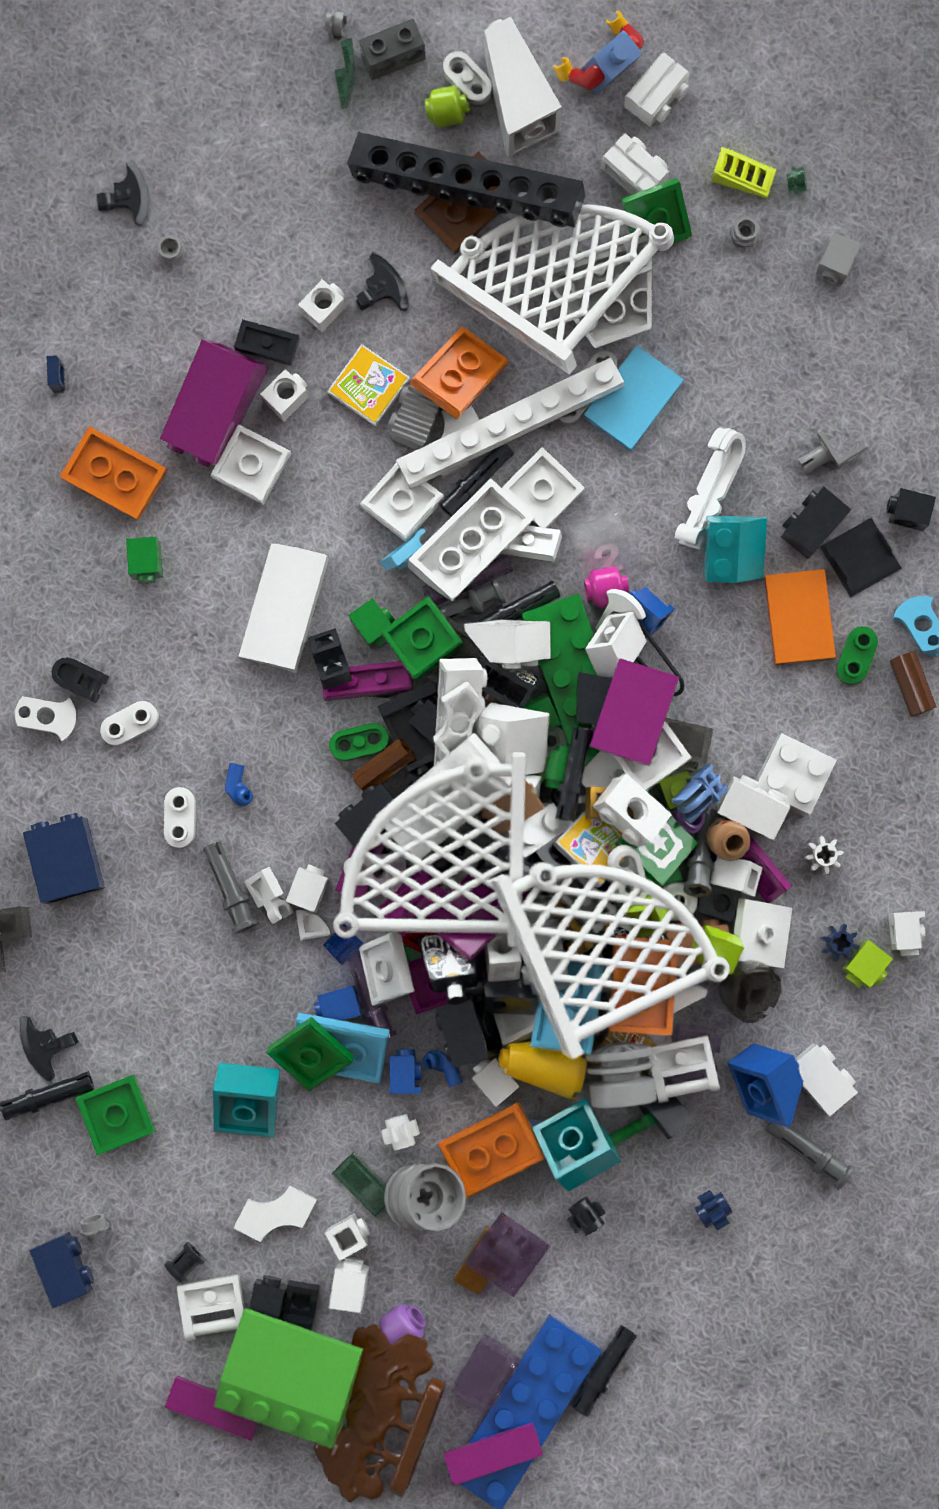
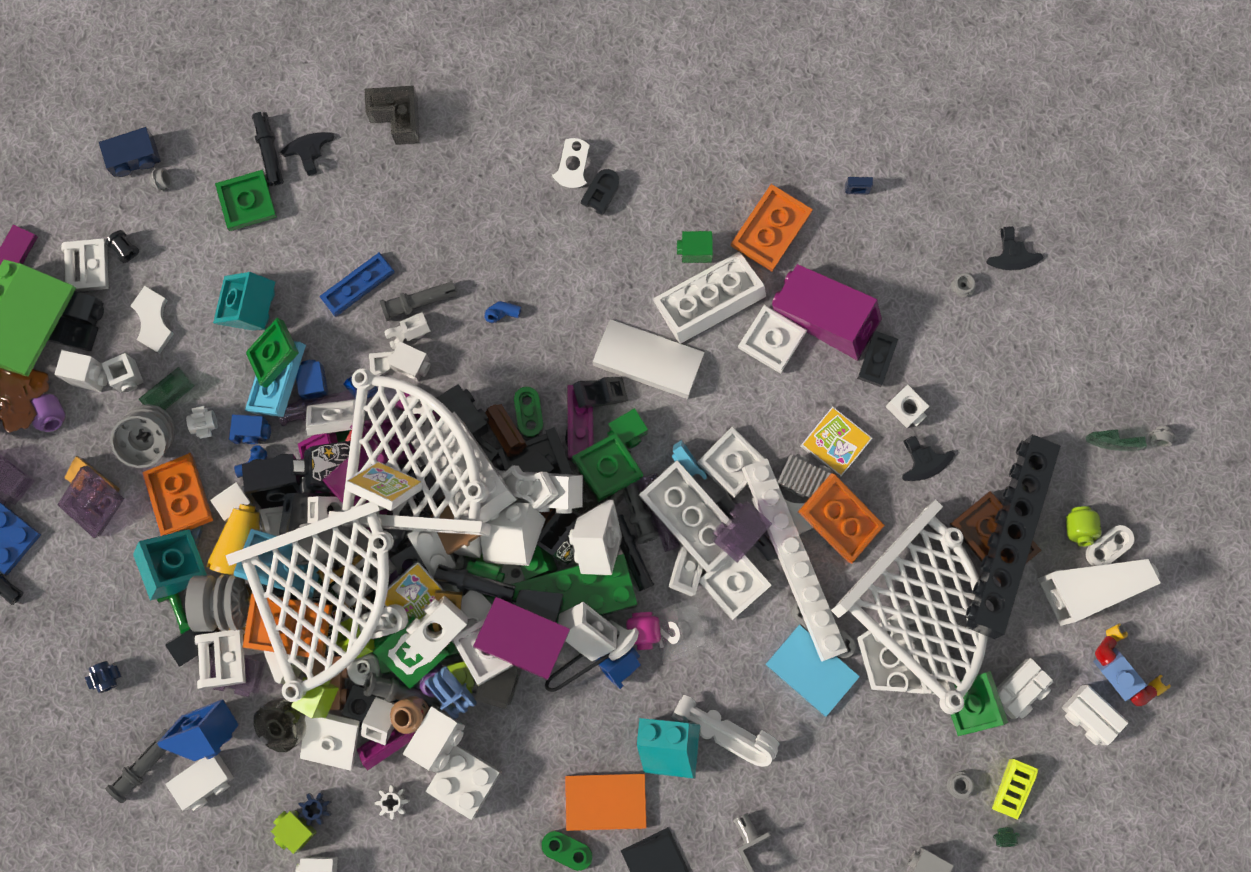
camera: 90 degrees right, 5 degrees down
(63, 858) = (454, 170): dark blue brick -> none
(129, 725) = (561, 228): white plate -> none
(180, 817) = (479, 265): white plate -> none
(203, 540) = (710, 297): none -> white slope
(214, 965) = (357, 284): none -> blue tile
(285, 407) = (830, 359): white brick -> none
(392, 49) = (1137, 482): dark grey brick -> none
(478, 876) = (383, 485): none -> tile
(486, 480) = (741, 530): none -> clear purple brick
(586, 1216) = (113, 569): black gear -> none
(815, 523) = (688, 824): black brick -> none

